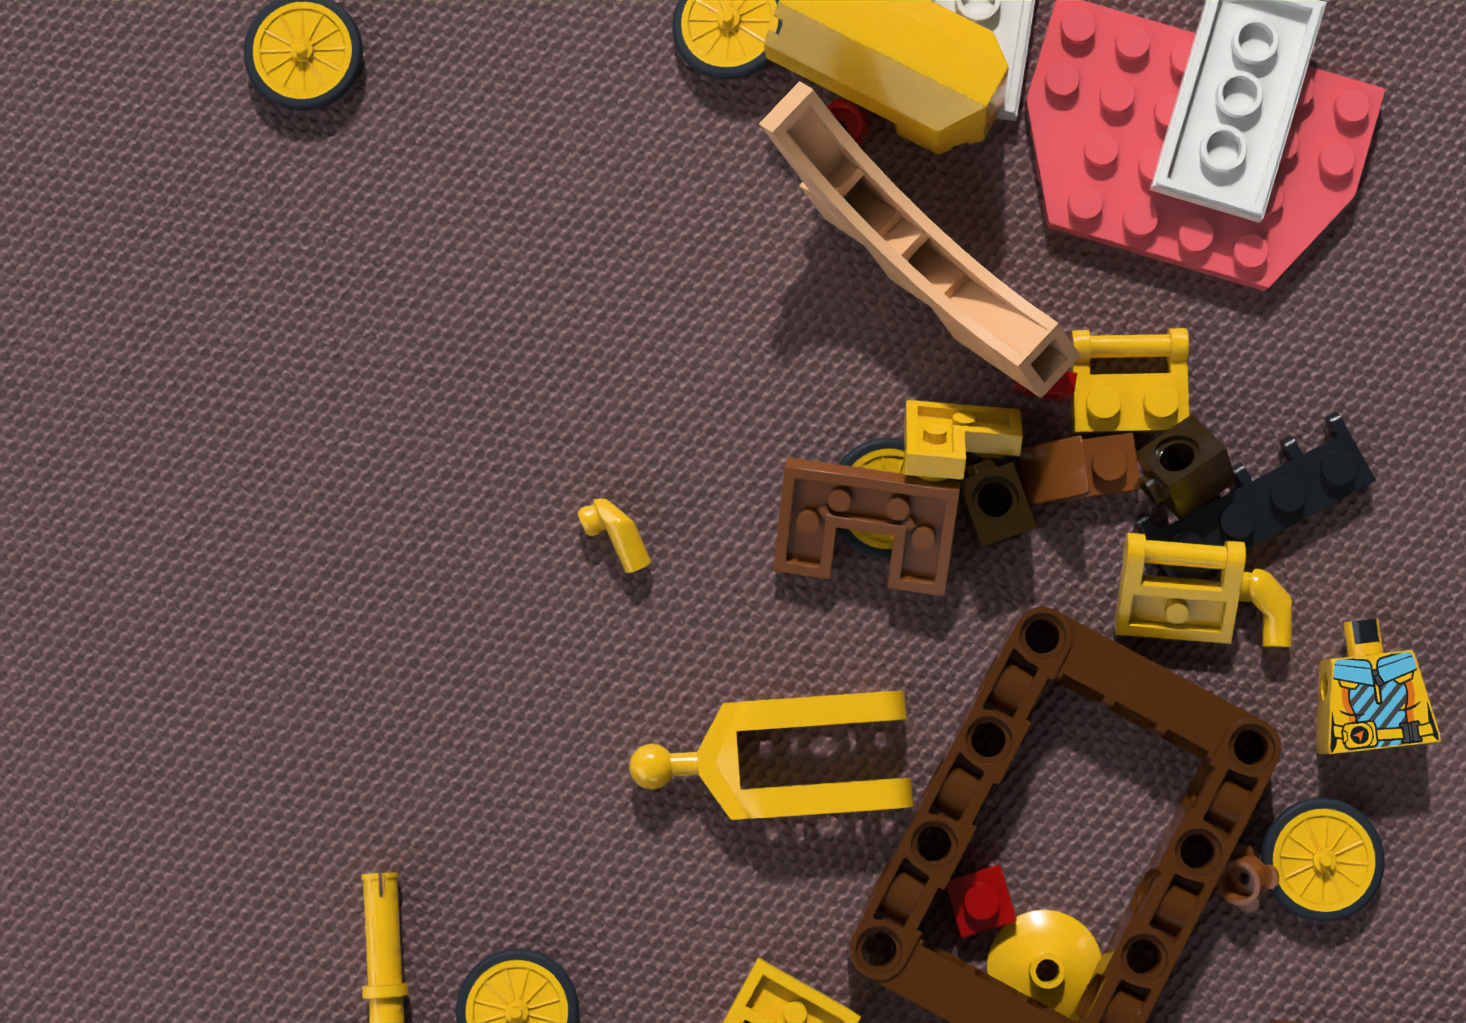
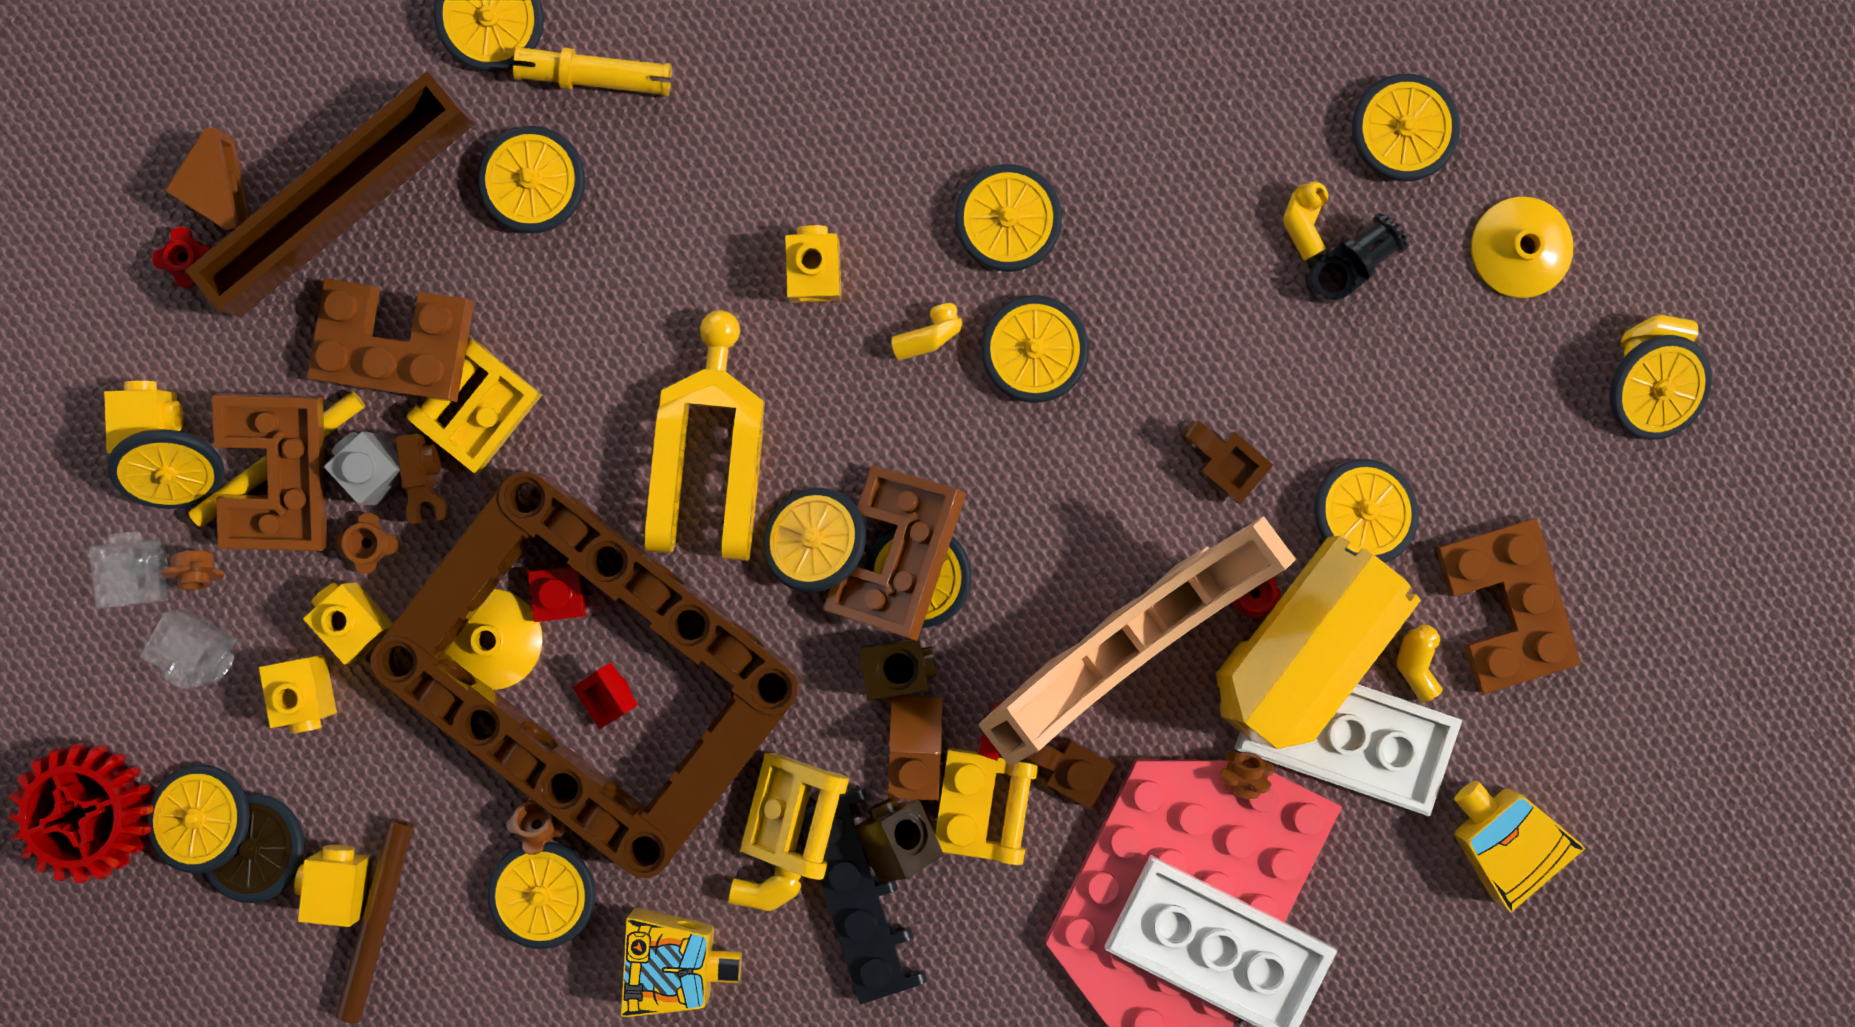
camera: 95 degrees right, 5 degrees up
(417, 147) = (1301, 217): none -> yellow arm
(457, 80) = (1356, 260): none -> black connector
(473, 467) = (1008, 217): none -> yellow wheel
(561, 673) = (813, 265): none -> yellow brick
(613, 412) = (1034, 349): none -> yellow wheel
(703, 177) = (1230, 463): none -> reddish brown plate
(868, 620) = (814, 540): none -> yellow wheel
(942, 433) = (967, 635): yellow plate -> none
(1048, 101) = (1246, 780): none -> dark orange plate
(1073, 287) = (1074, 771): none -> reddish brown plate
(1085, 824) = (605, 695): none -> red plate

